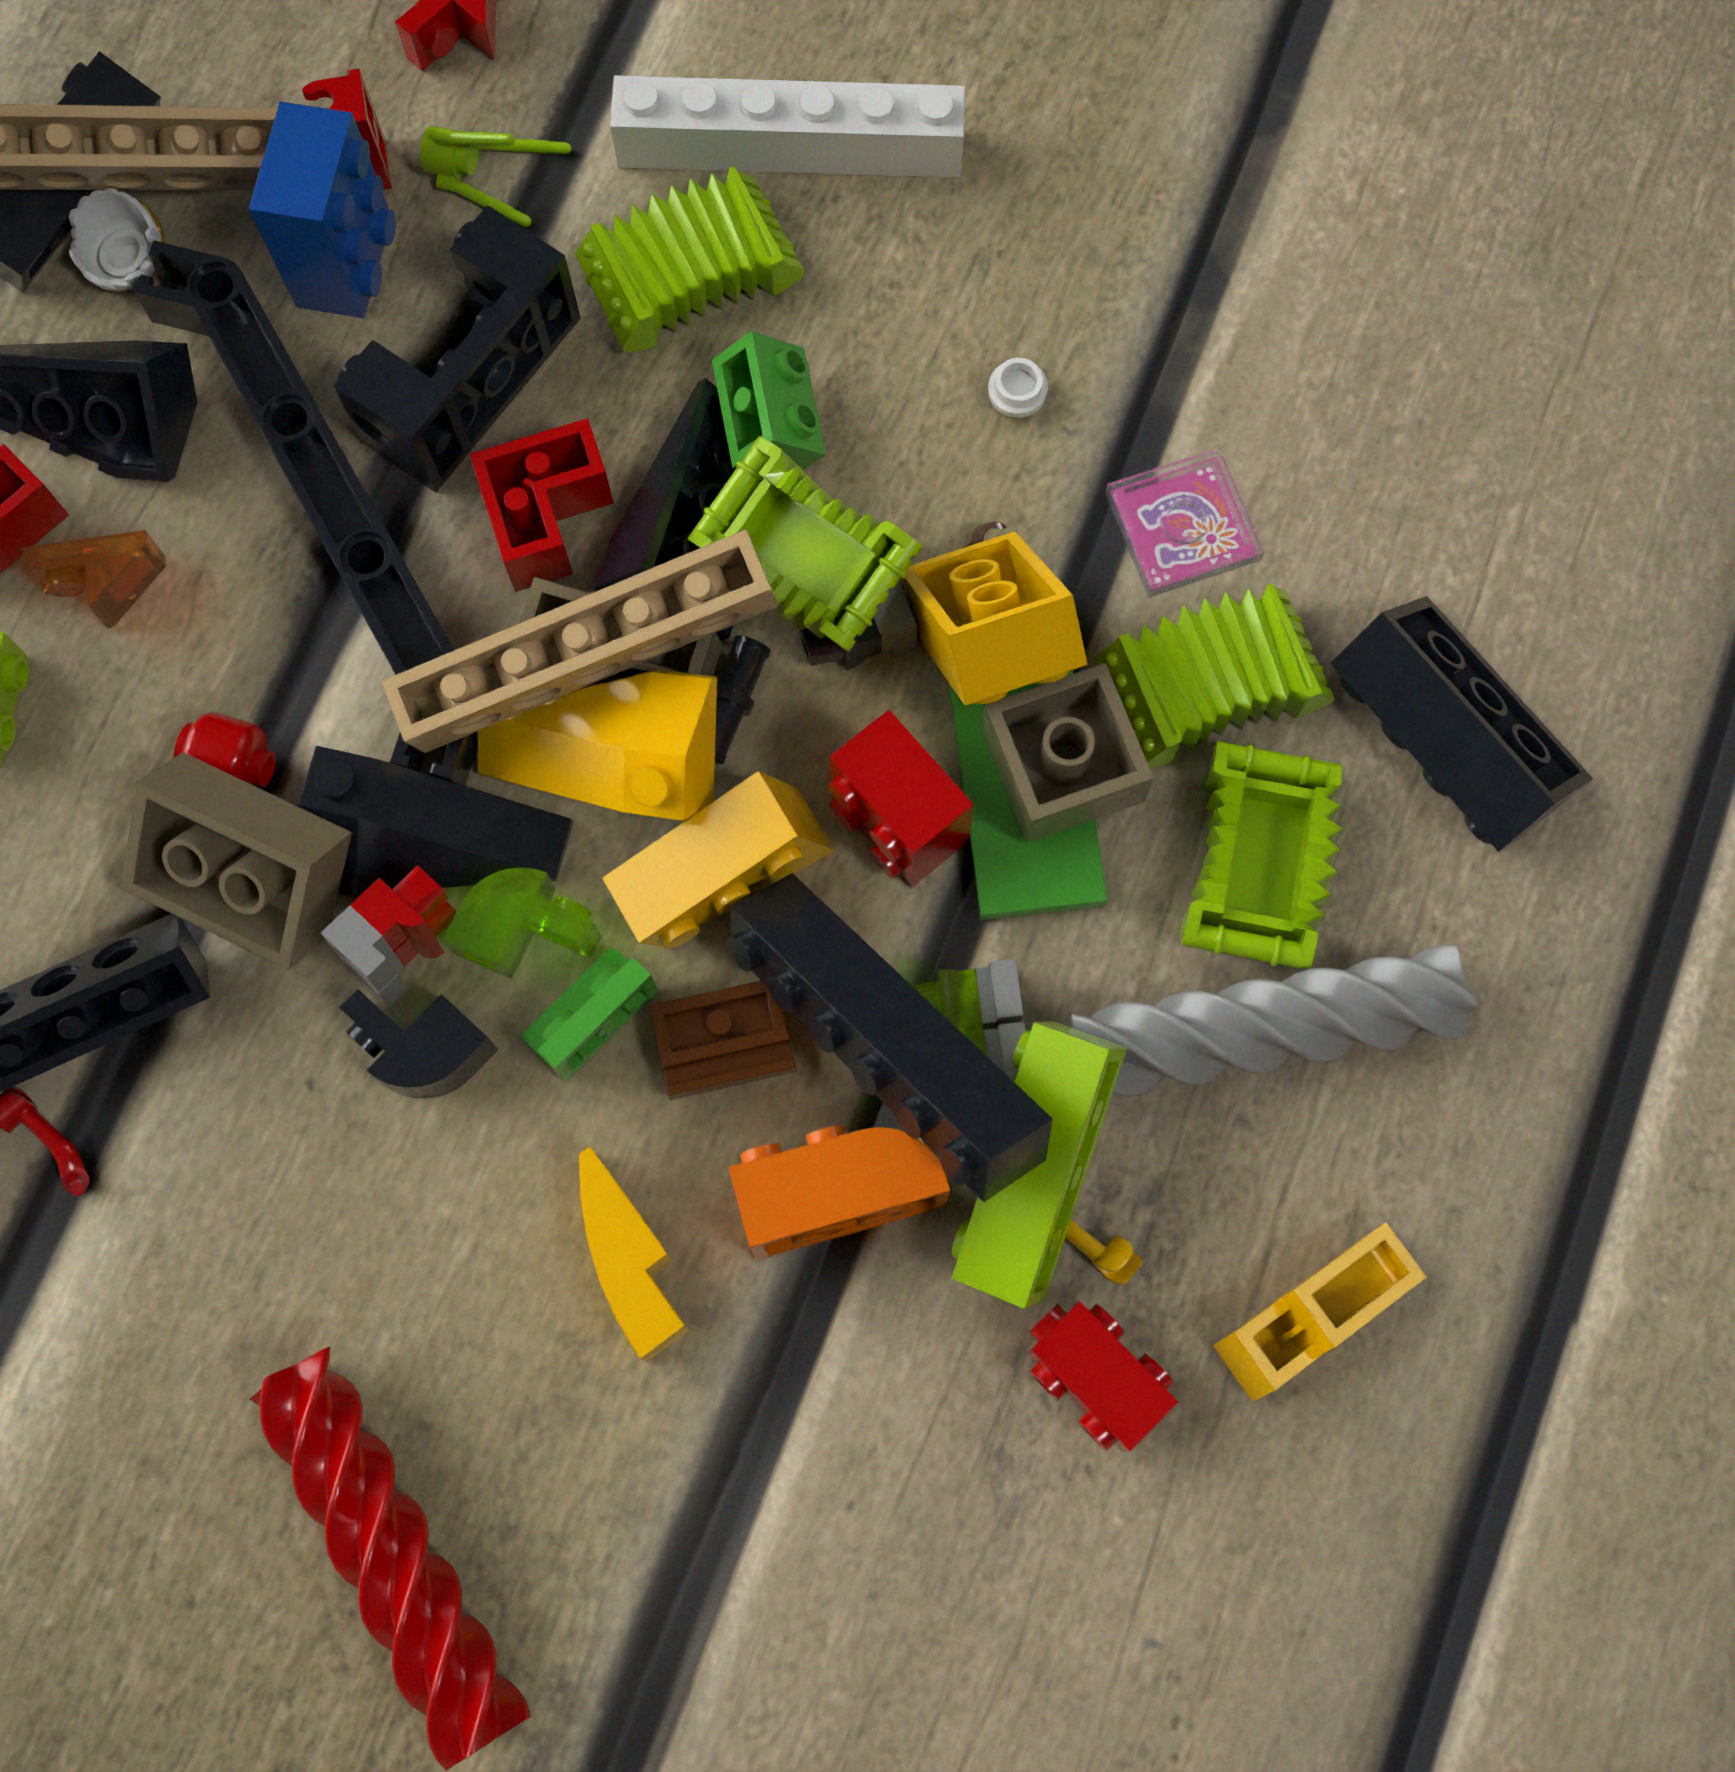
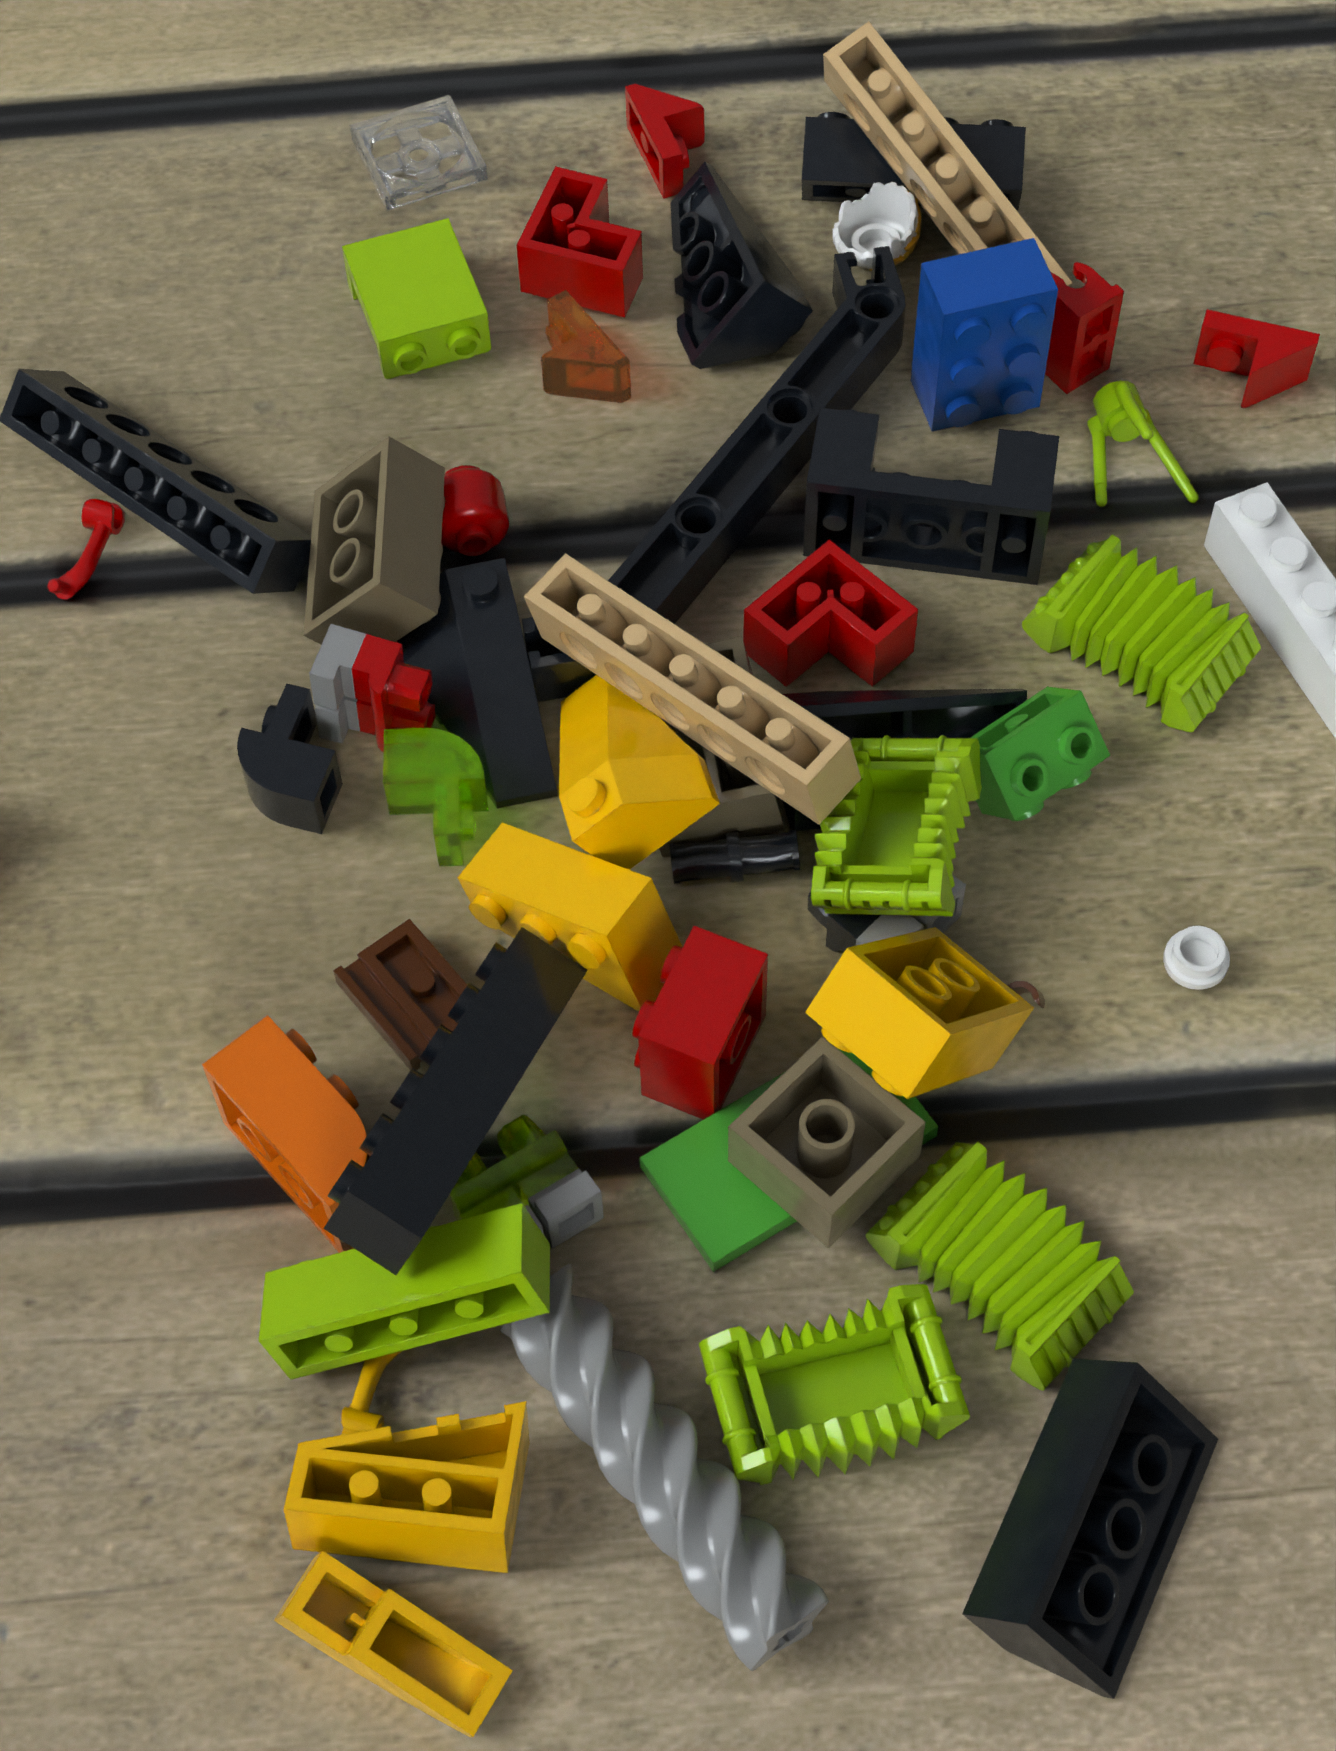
camera: 65 degrees right, 15 degrees down
(590, 1012) = (377, 879): bright green bracket -> none
(626, 1259) = (171, 1007): yellow slope -> none
(1083, 1358) = (231, 1451): red brick -> none
(1184, 522) = (1152, 1170): clear tile -> none
(1212, 1230) = (414, 1494): none -> yellow wedge

